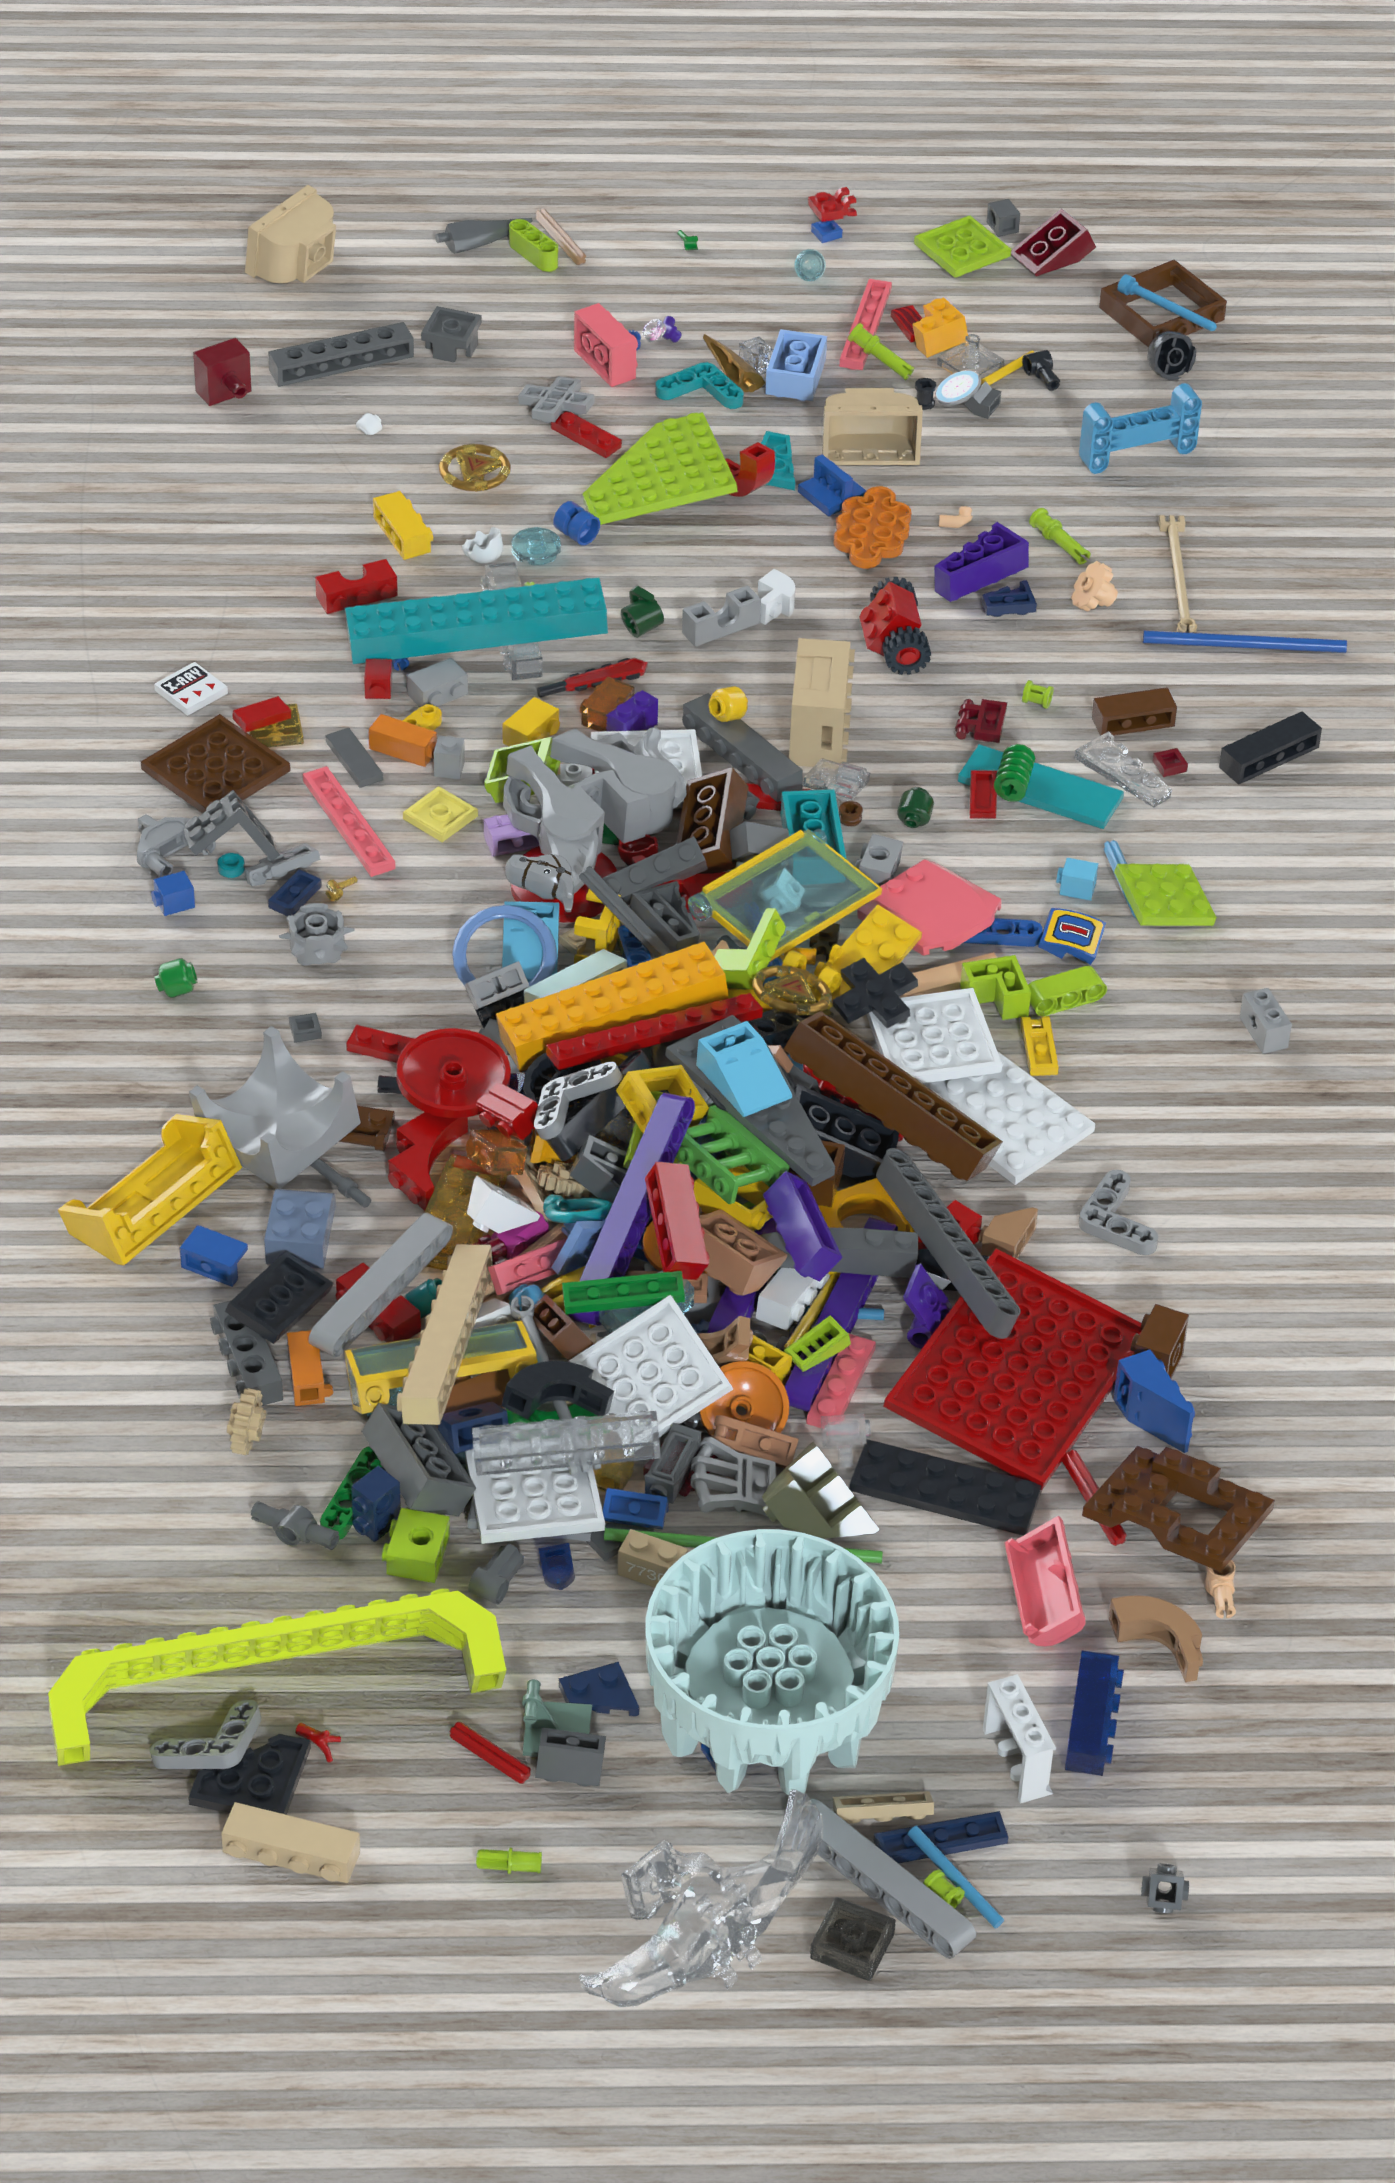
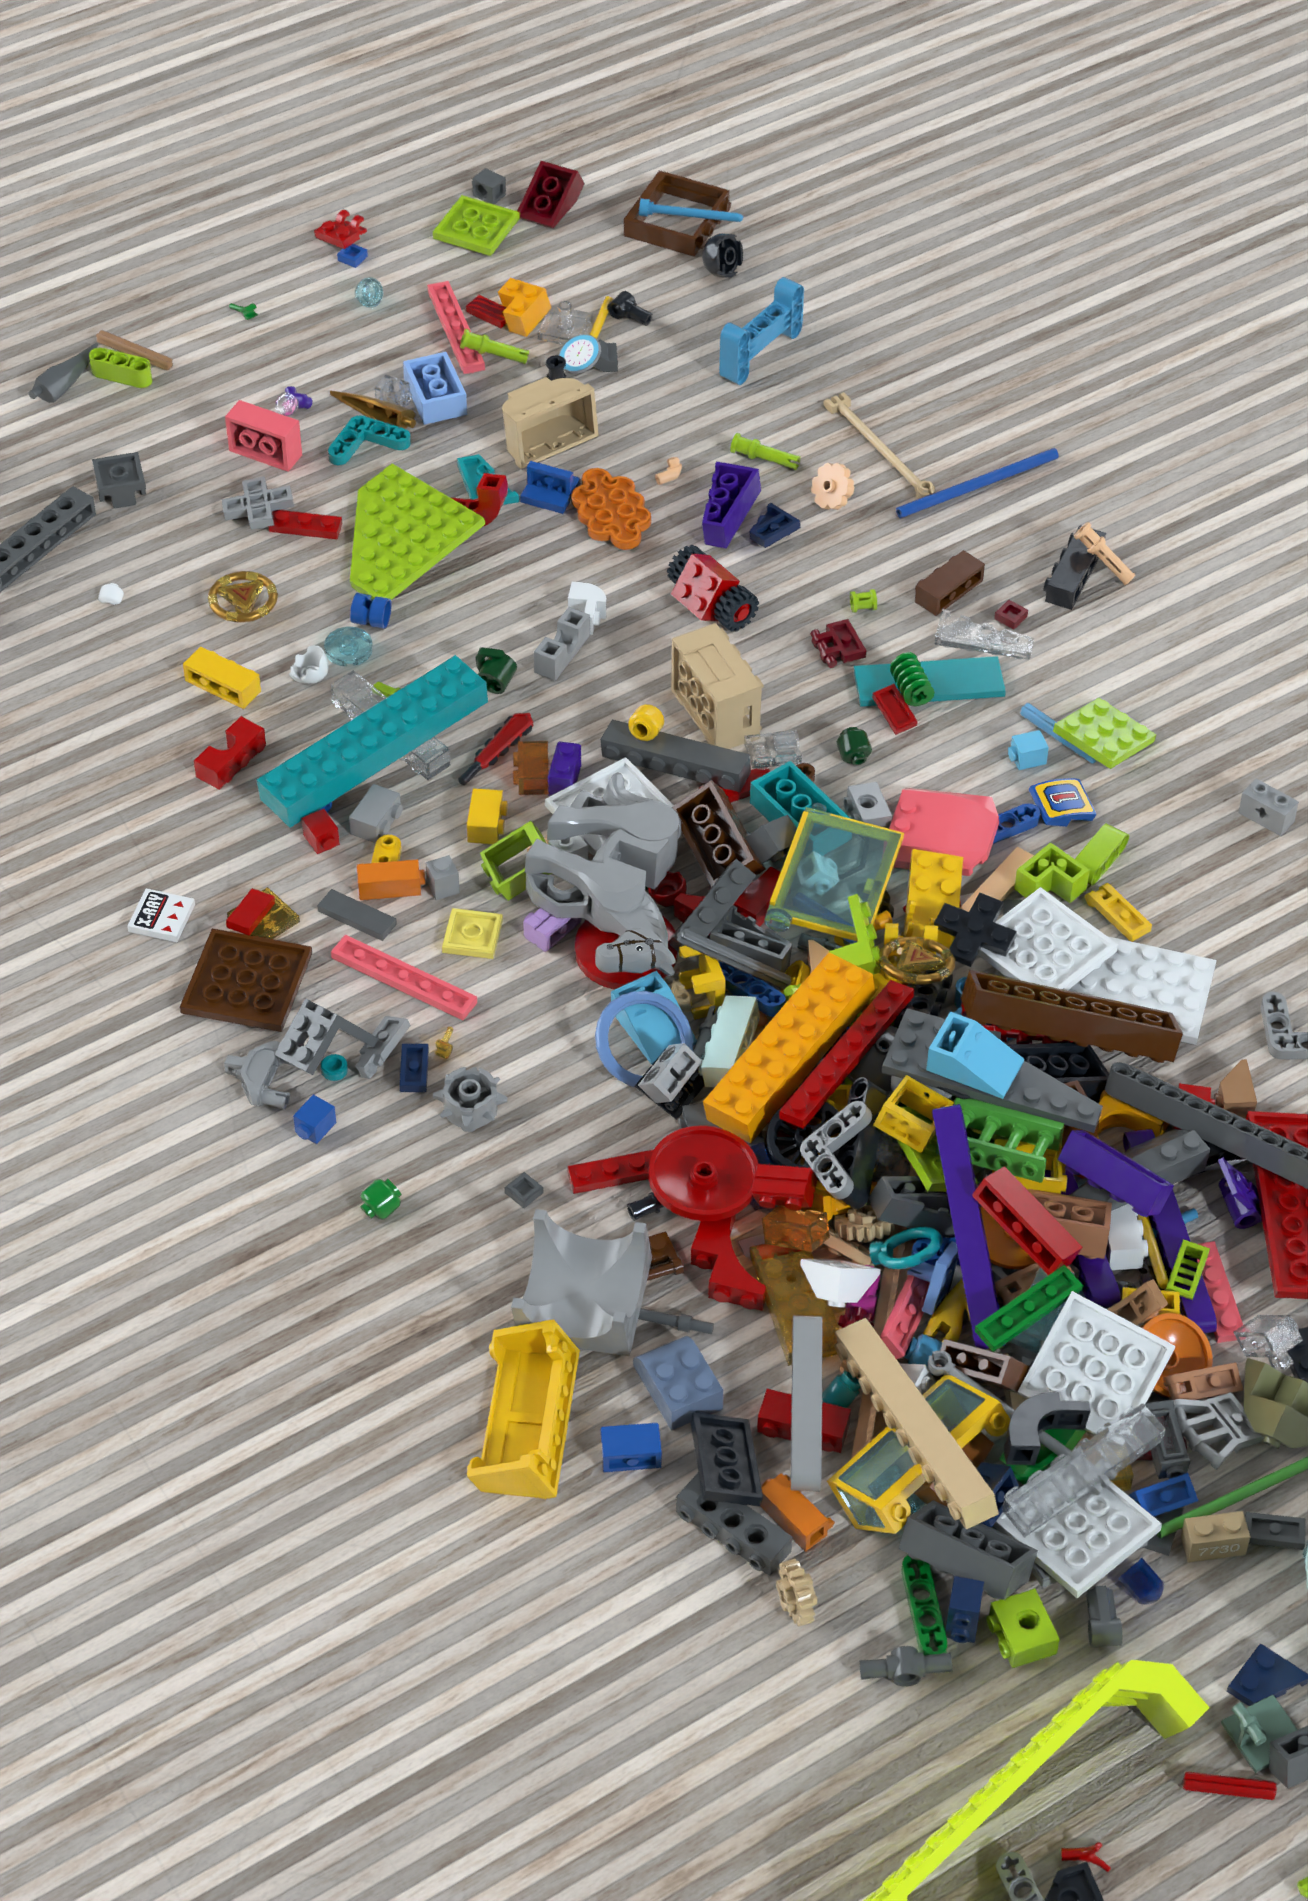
camera: 30 degrees left, 5 degrees up
(1297, 733) = (1097, 546): none -> light nougat pin

